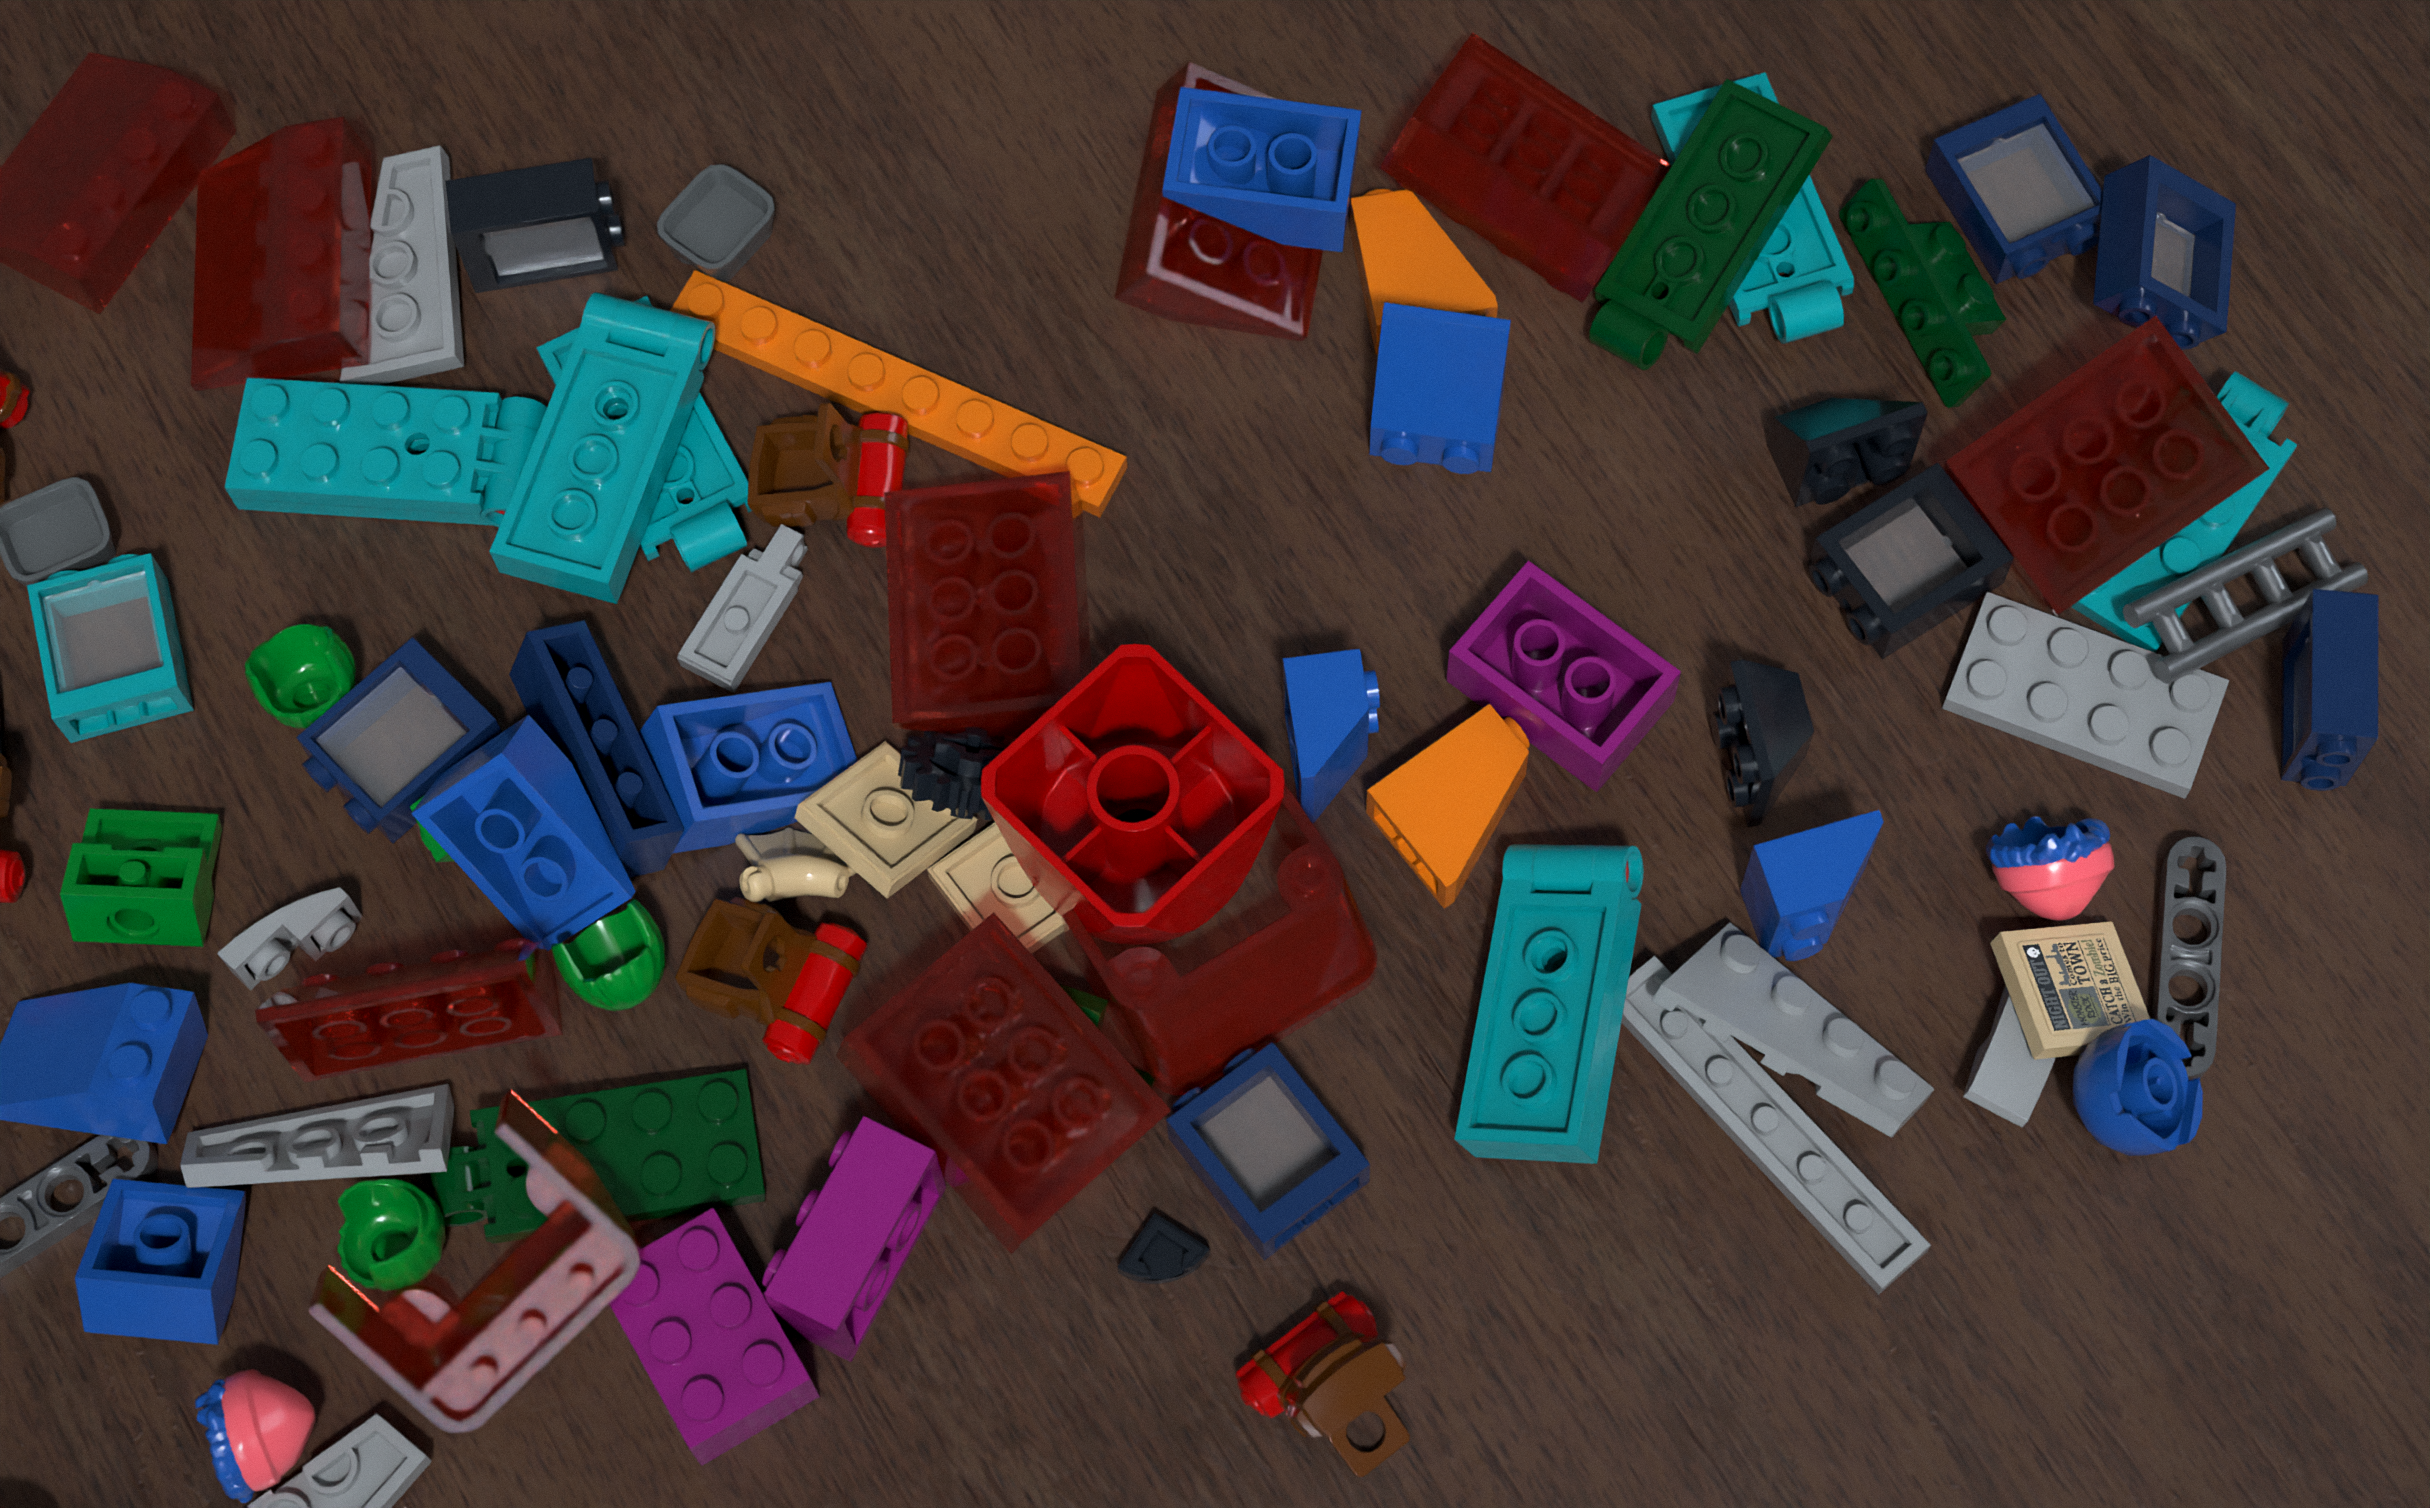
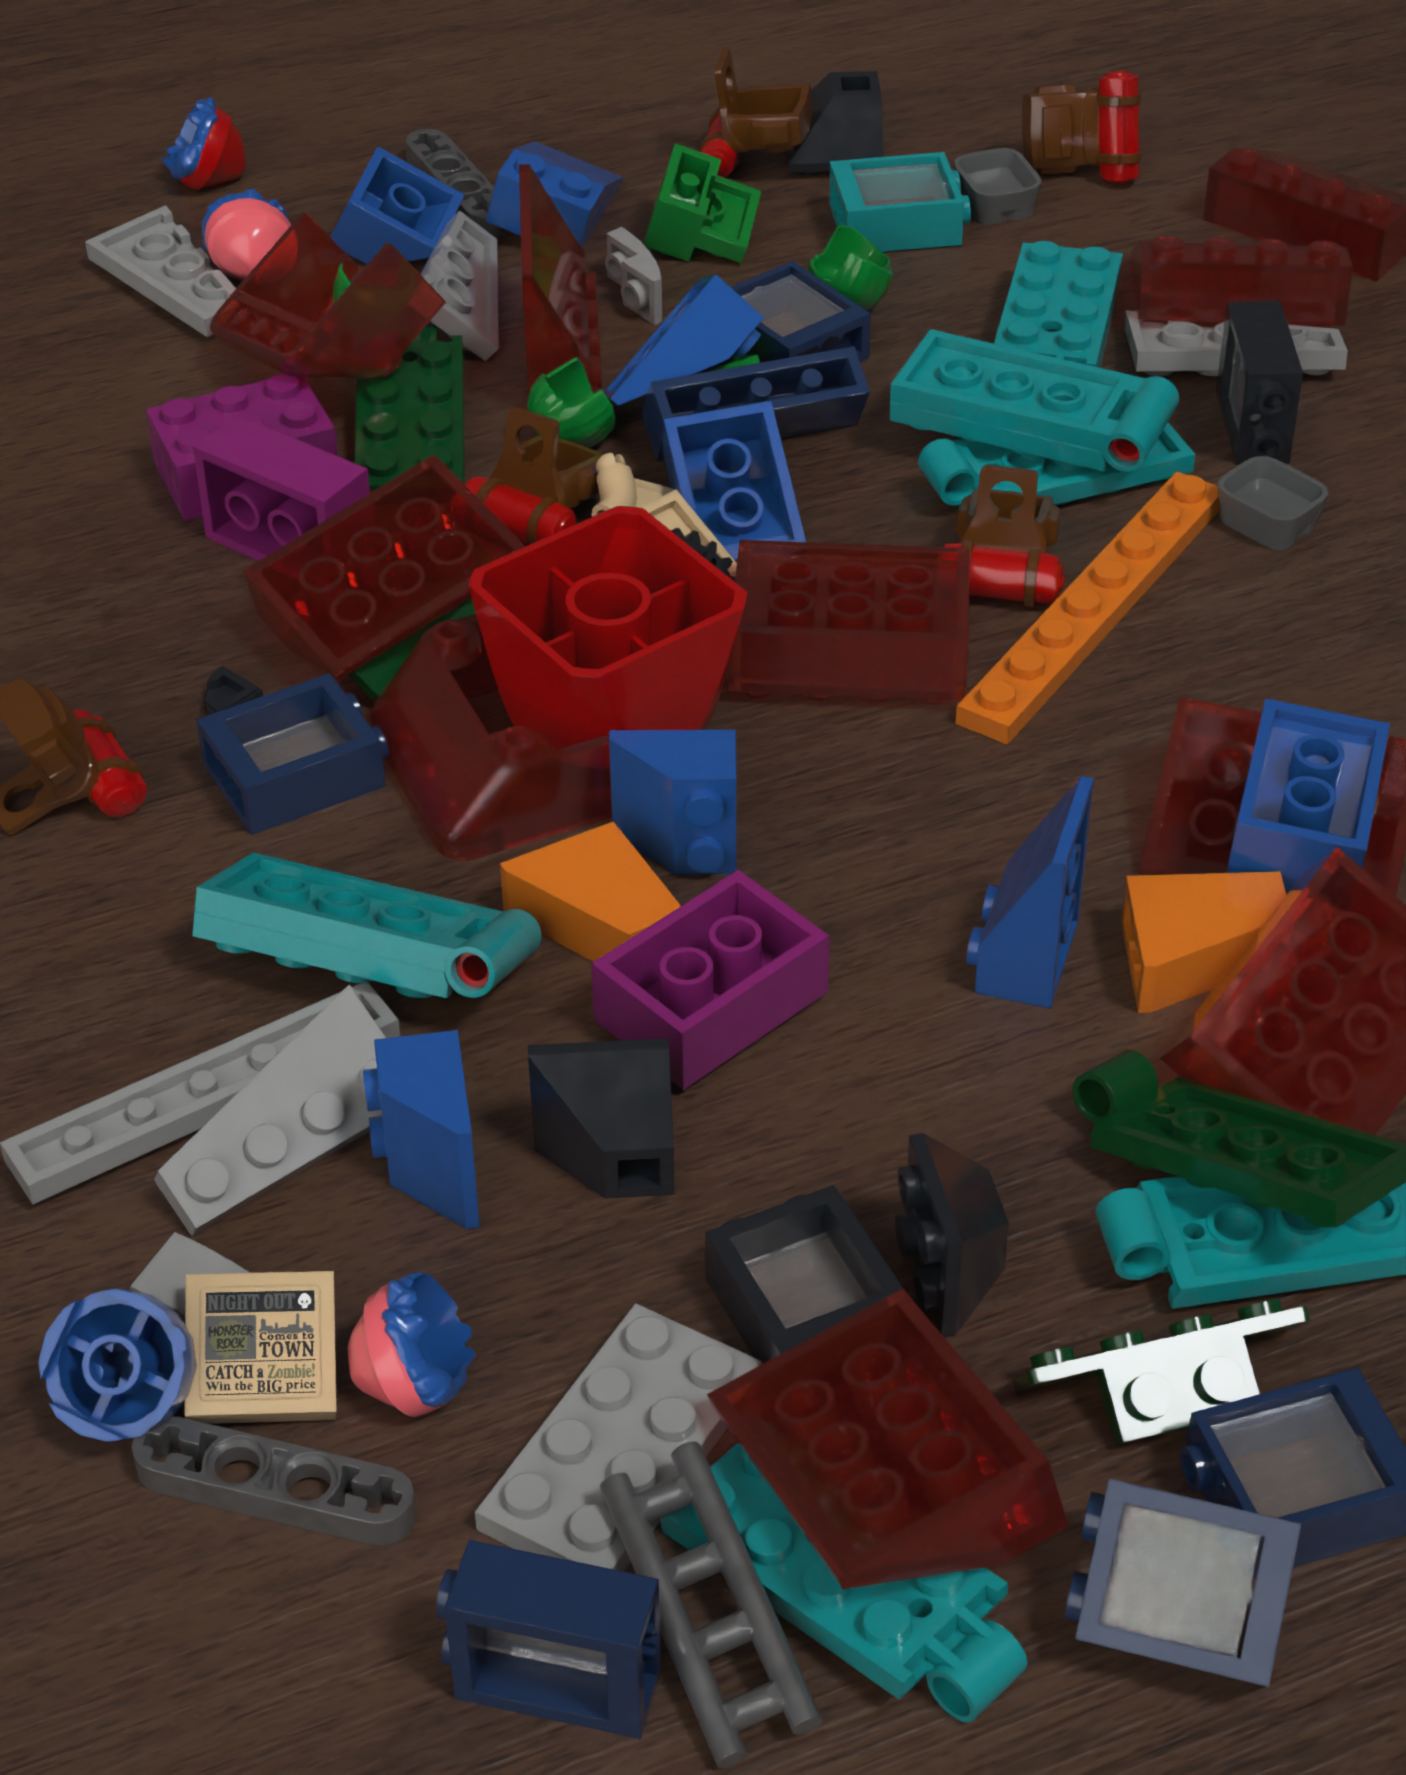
camera: 95 degrees right, 25 degrees down
(745, 611) = (883, 502): light grey hinge -> none

